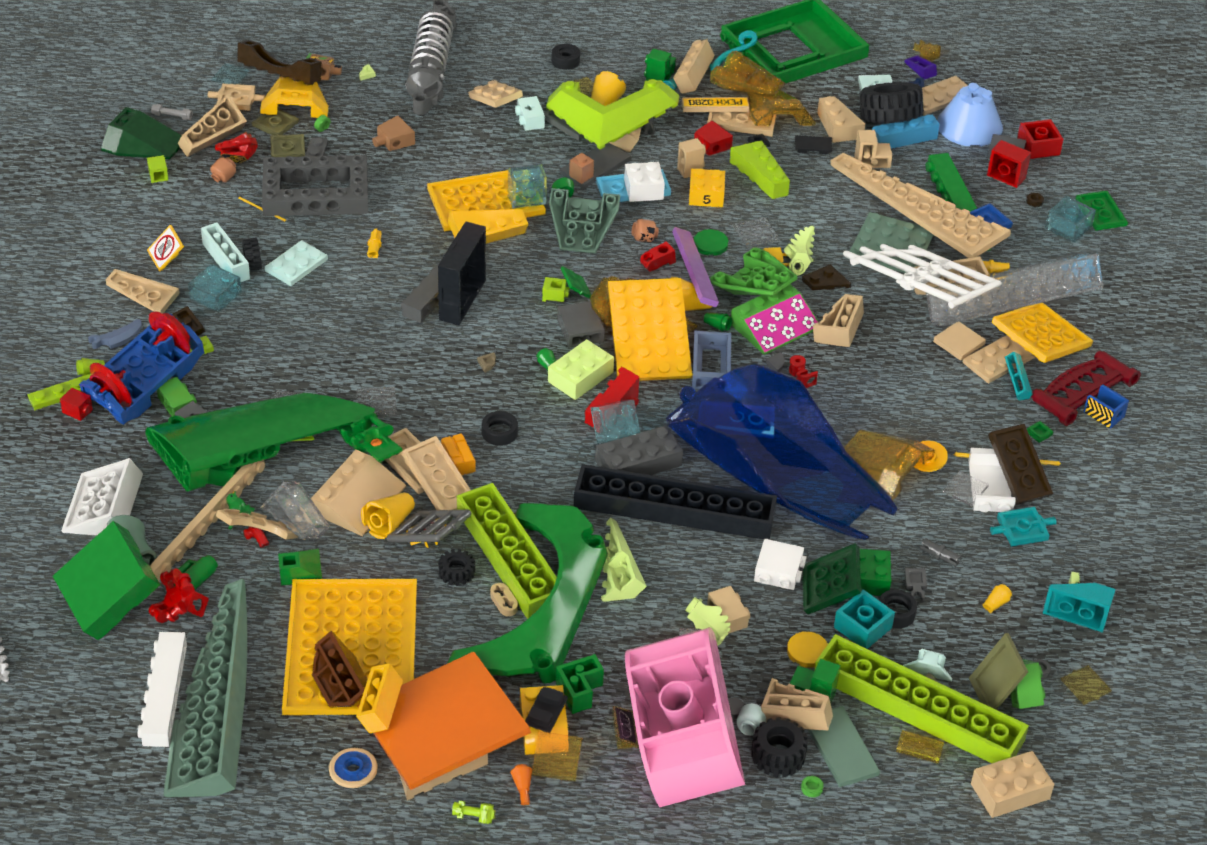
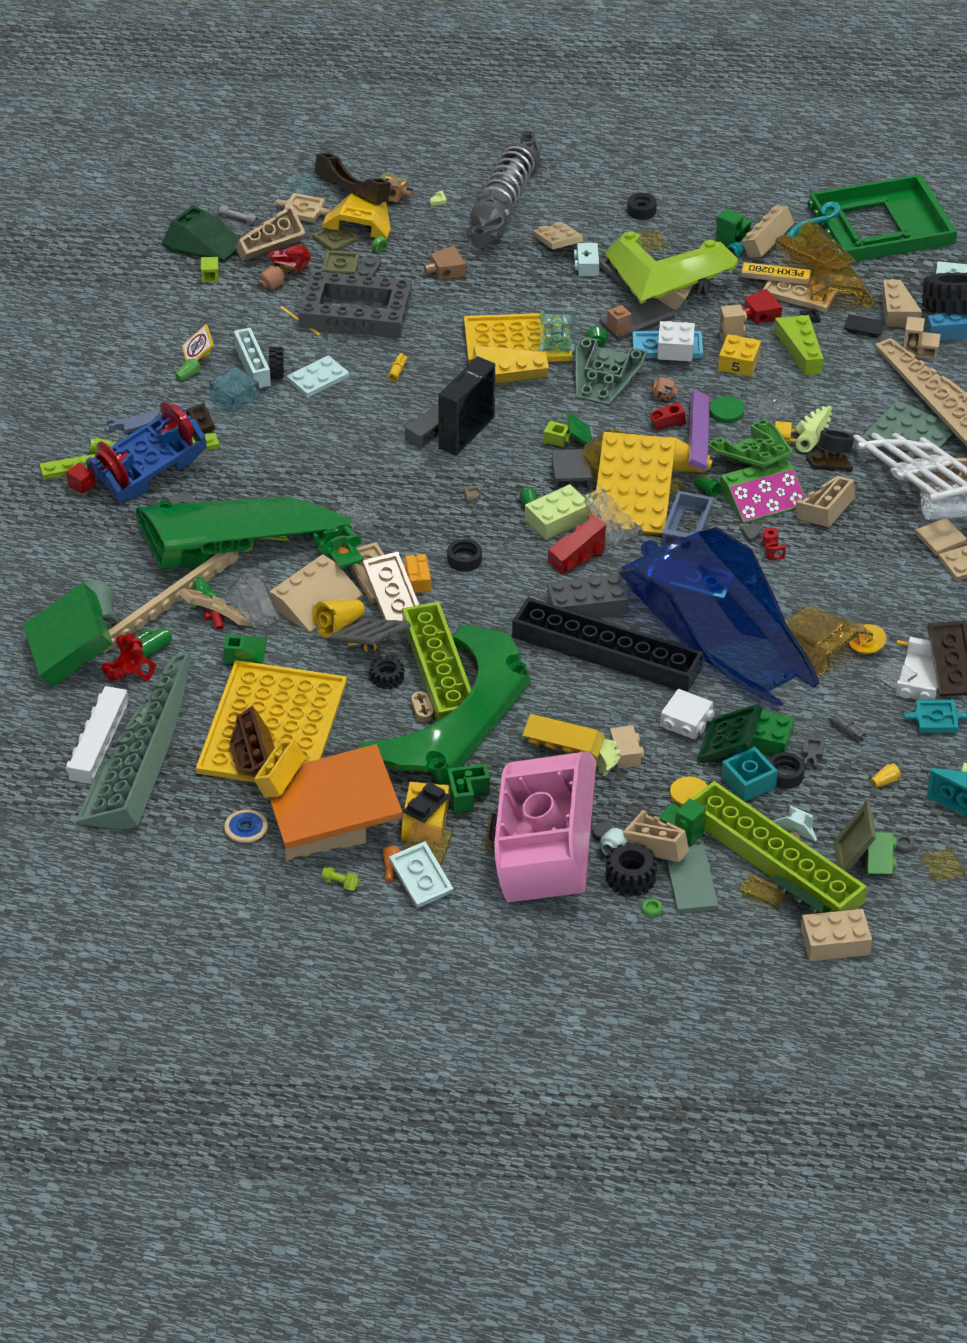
camera: 15 degrees right, 0 degrees up
(102, 496) = (84, 561): white slope -> none
(144, 291) = (169, 384): tan wing -> none
(162, 272) = (189, 368): none -> bright green cone
(174, 395) = (171, 482): bright green brick -> none
(560, 792) = (421, 874): none -> light aqua plate
(607, 88) = (670, 244): yellow cone -> none
(615, 420) = (572, 562): clear light blue brick -> none
(623, 574) = (539, 693): yellowish green wedge -> none
(634, 359) = (618, 523): none -> clear wedge
(664, 609) = (562, 736): none -> yellow brick
(828, 259) = (836, 441): none -> black tyre
(964, 747) = (800, 895): none -> dark green plate

